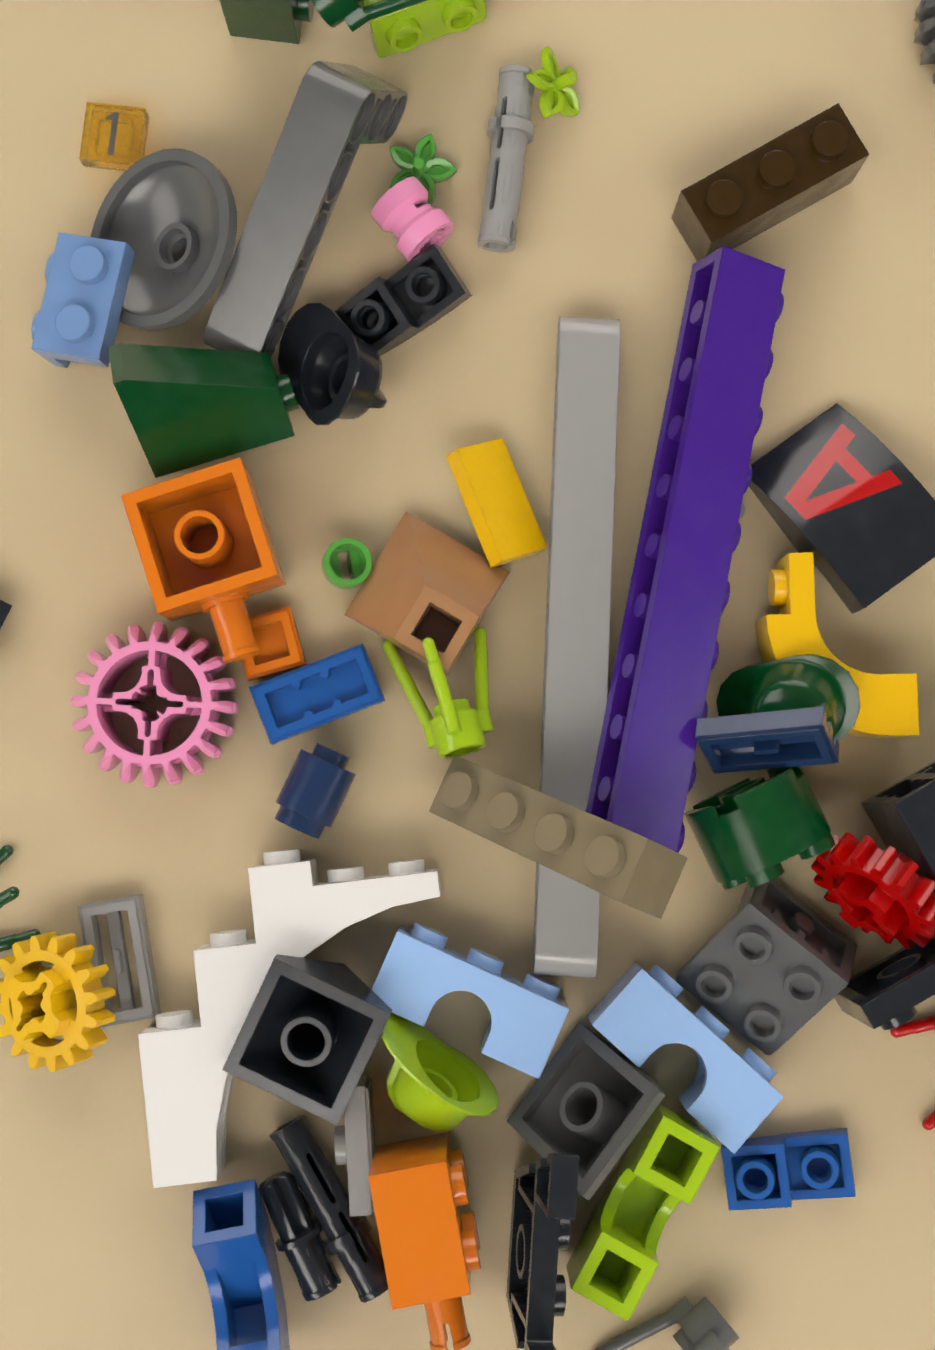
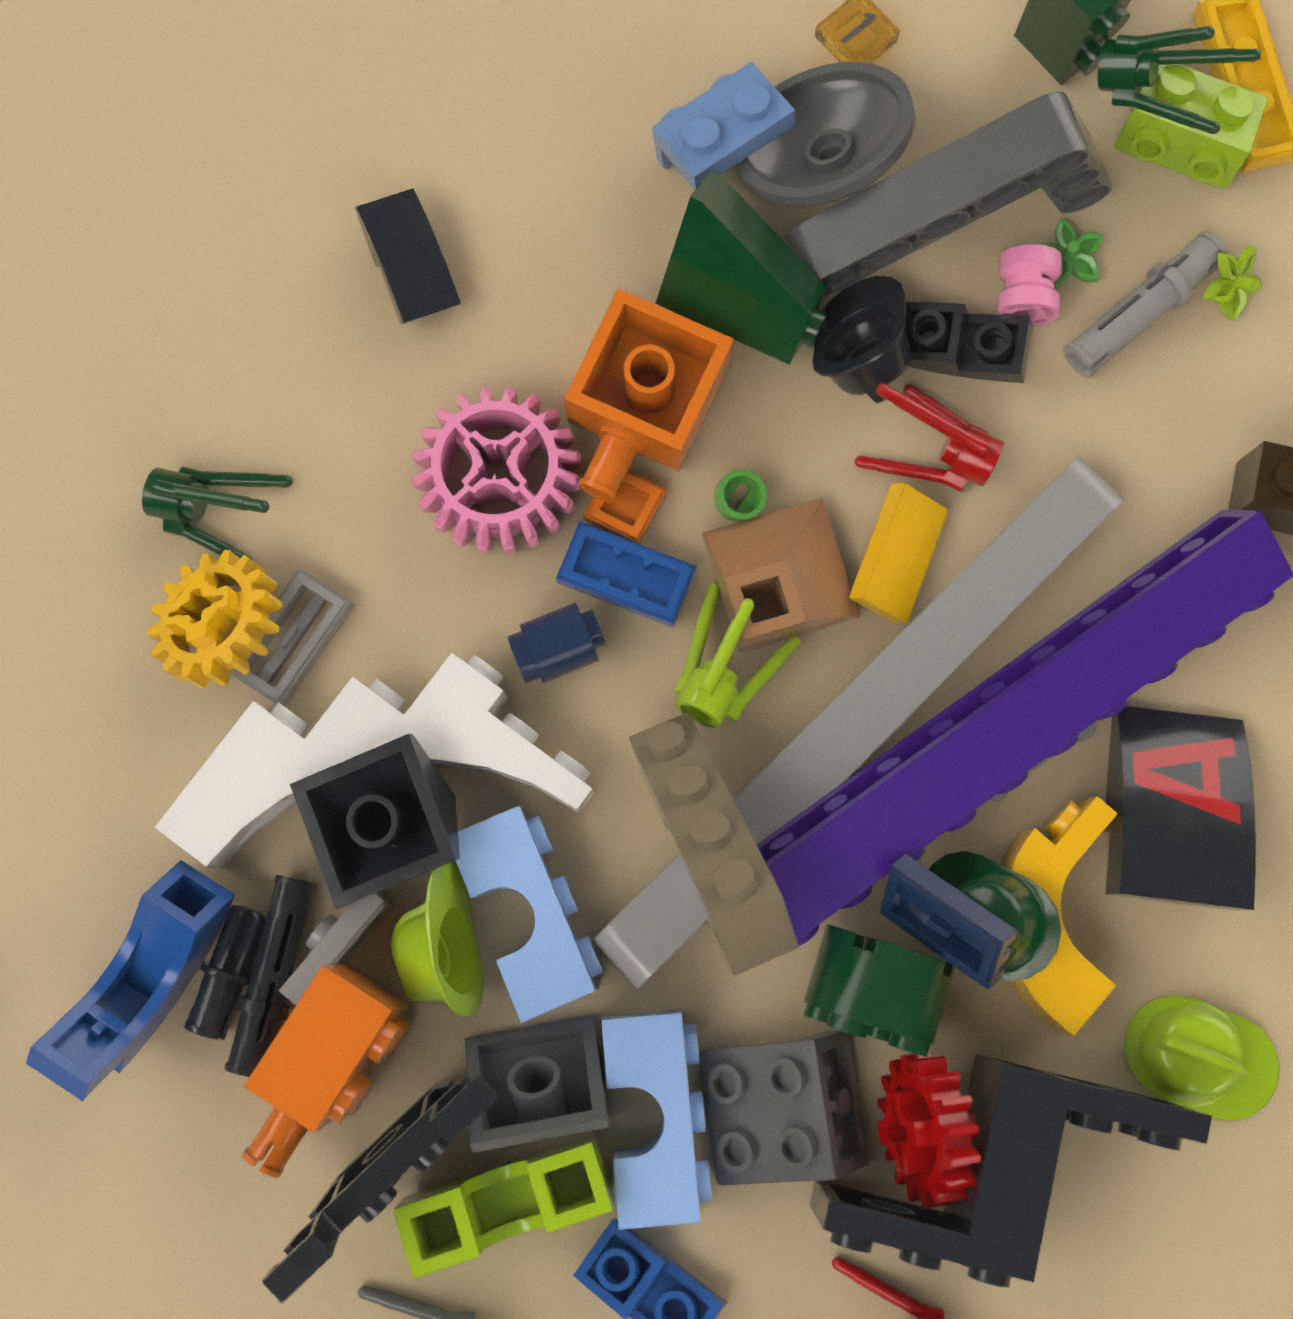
camera: 45 degrees right, 5 degrees down
(476, 381) = (967, 451): none -> red plant

